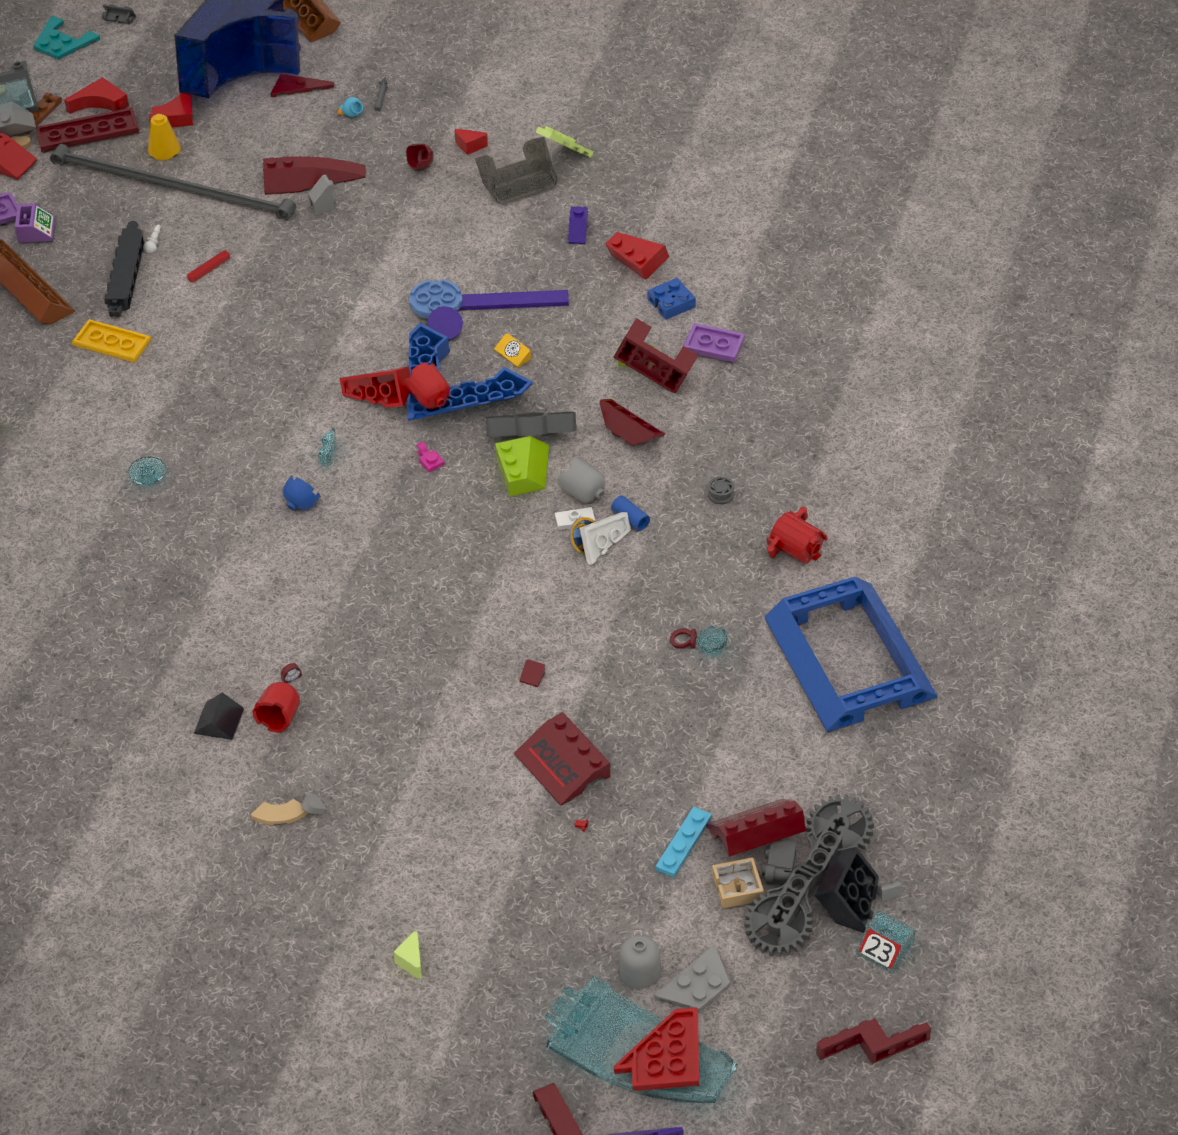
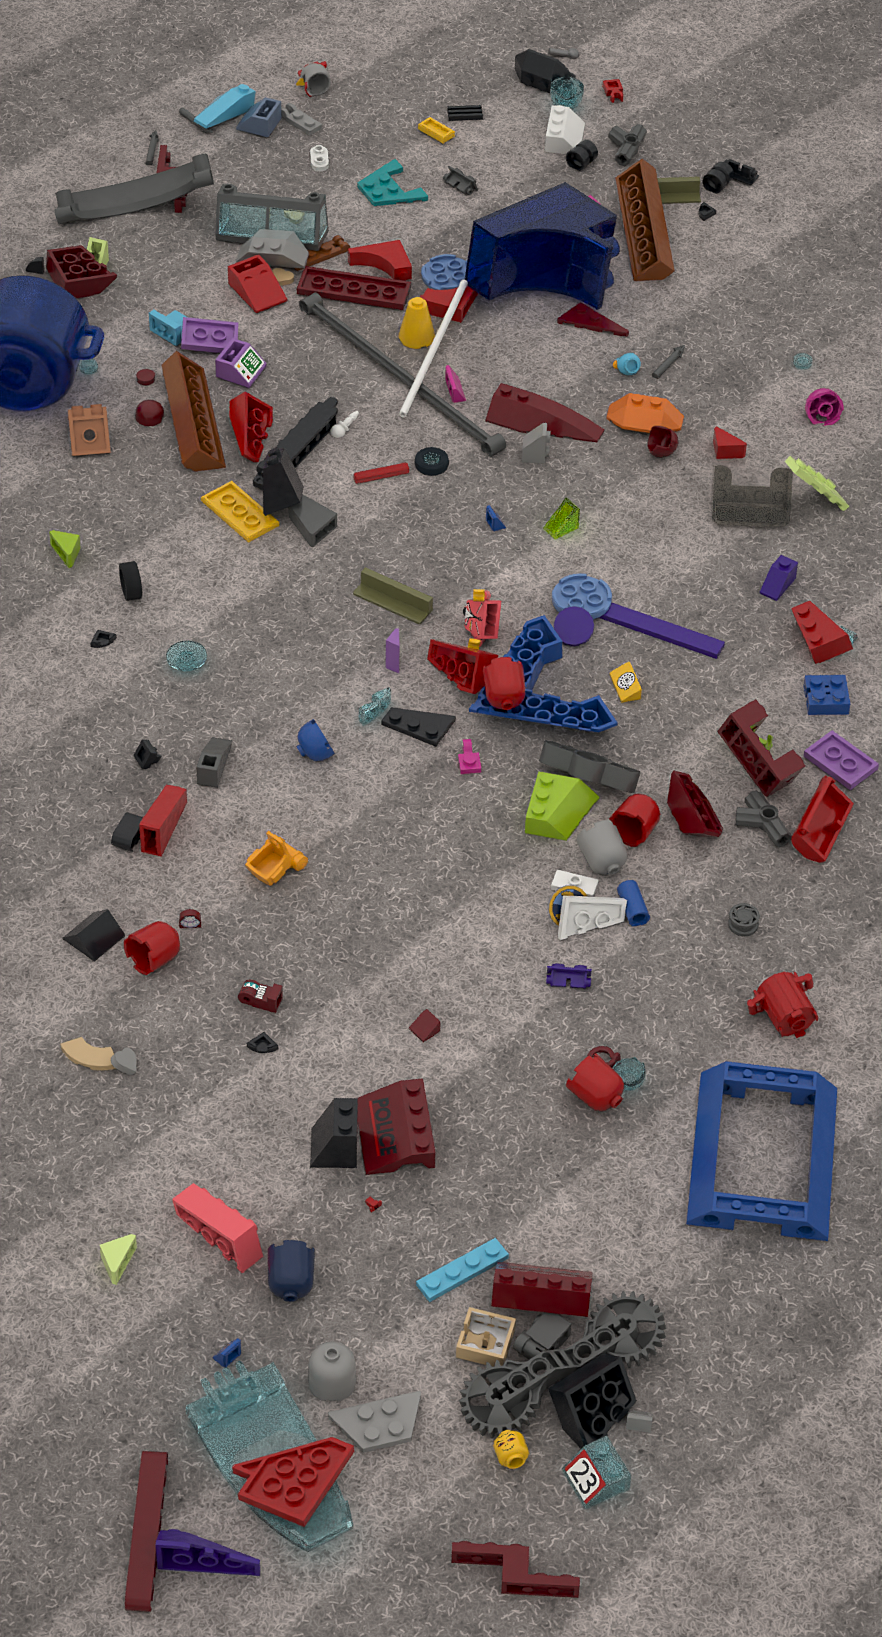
camera: 25 degrees right, 0 degrees up
(61, 429) = (130, 580): none -> black tyre
(65, 485) = (102, 638): none -> black tile
(73, 265) = (249, 422): none -> red wedge
(137, 303) = (280, 482): none -> black slope
(155, 90) = (444, 272): none -> medium blue tile
(166, 560) = (146, 754): none -> black tile
(176, 323) = (312, 520): none -> dark grey slope
(189, 154) = (433, 348): none -> white piece
(193, 626) = (127, 832): none -> black beam
(216, 605) = (162, 819): none -> red slope
(221, 176) = (454, 385): none -> dark pink slope
(226, 544) = (213, 761): none -> dark grey slope
(236, 241) = (428, 455): none -> black bush
(284, 357) = (394, 596): none -> olive panel
(318, 399) = (393, 651): none -> medium lavender slope
(324, 267) = (493, 519): none -> blue slope
(329, 598) = (273, 859): none -> light orange piece
(370, 345) = (482, 617): none -> coral torso
(370, 448) = (419, 724): none -> black wing
(382, 245) = (563, 520): none -> clear neon green slope
(388, 140) = (643, 412): none -> orange wedge
(388, 706) = (261, 995): none -> dark red leg
(413, 742) = (262, 1043): none -> black tile
(476, 893) = (220, 1225): none -> coral wedge
(485, 55) = (802, 361): none -> clear light blue tile
(524, 784) = (336, 1135): none -> black slope
(527, 79) = (826, 403): none -> dark pink cylinder
(546, 986) = (228, 1353): none -> blue slope
(557, 901) = (291, 1270): none -> dark blue cylinder
(593, 446) = (636, 819): none -> red cylinder
(623, 584) = (577, 975): none -> dark purple hinge
(685, 407) = (764, 816): none -> dark grey piece
(697, 658) = (596, 1084): none -> red cylinder
(731, 393) = (822, 821): none -> red container
(811, 955) = (511, 1449): none -> yellow head

